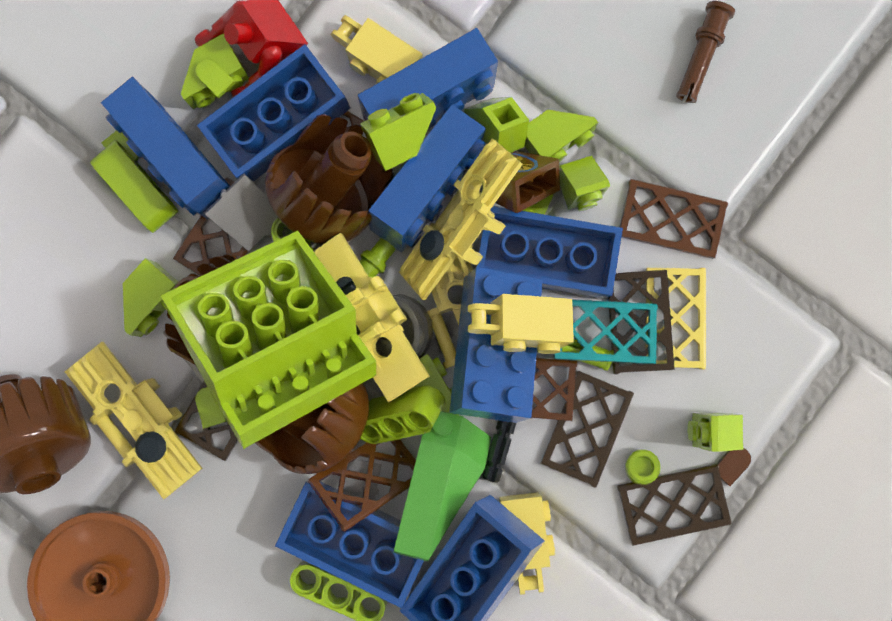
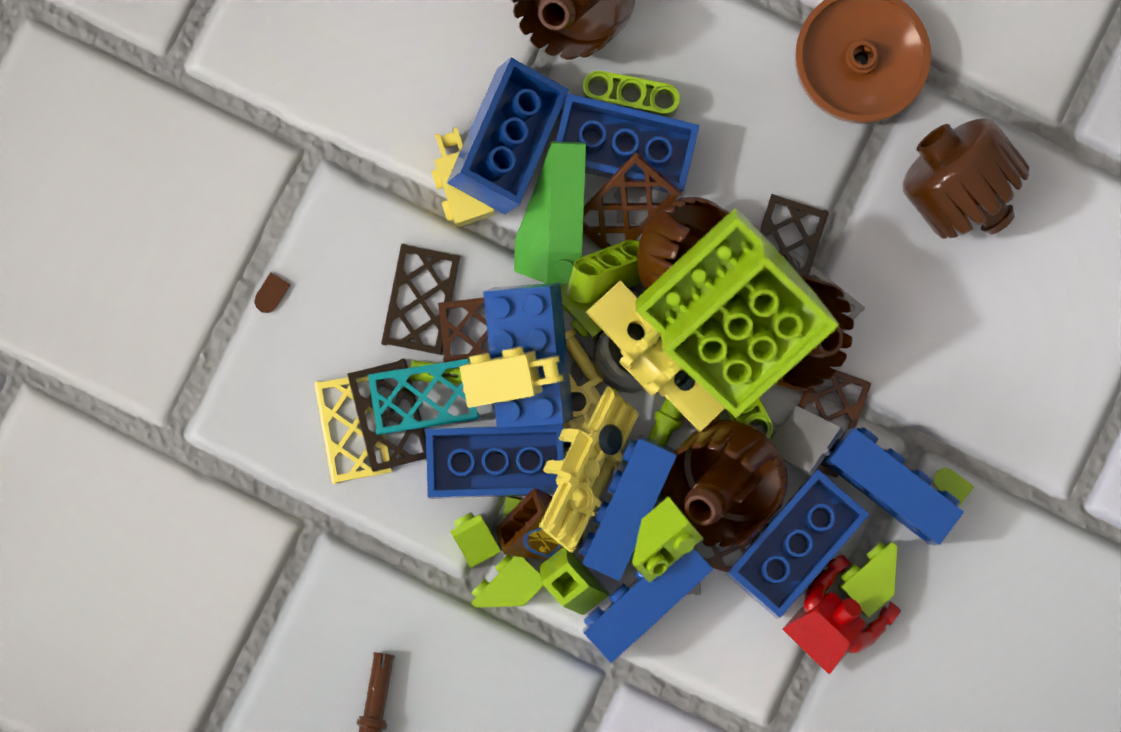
camera: 165 degrees right, 0 degrees up
(134, 186) = (925, 446): lime beam -> none
(143, 299) = (885, 340): lime slope -> none
(144, 415) = (859, 222): light yellow piece -> none
(208, 409) = (797, 242): lime piece -> none
(214, 77) = (866, 569): lime piece -> none
(374, 49) = (707, 633): light yellow brick -> none
(498, 451) = (504, 257): black axle -> none
(642, 467) = (360, 272): lime tile -> none
(693, 201) = (358, 504): reddish brown window -> none
(696, 523) = (329, 216): dark brown window -> none
(716, 431) = (296, 320): lime slope -> none

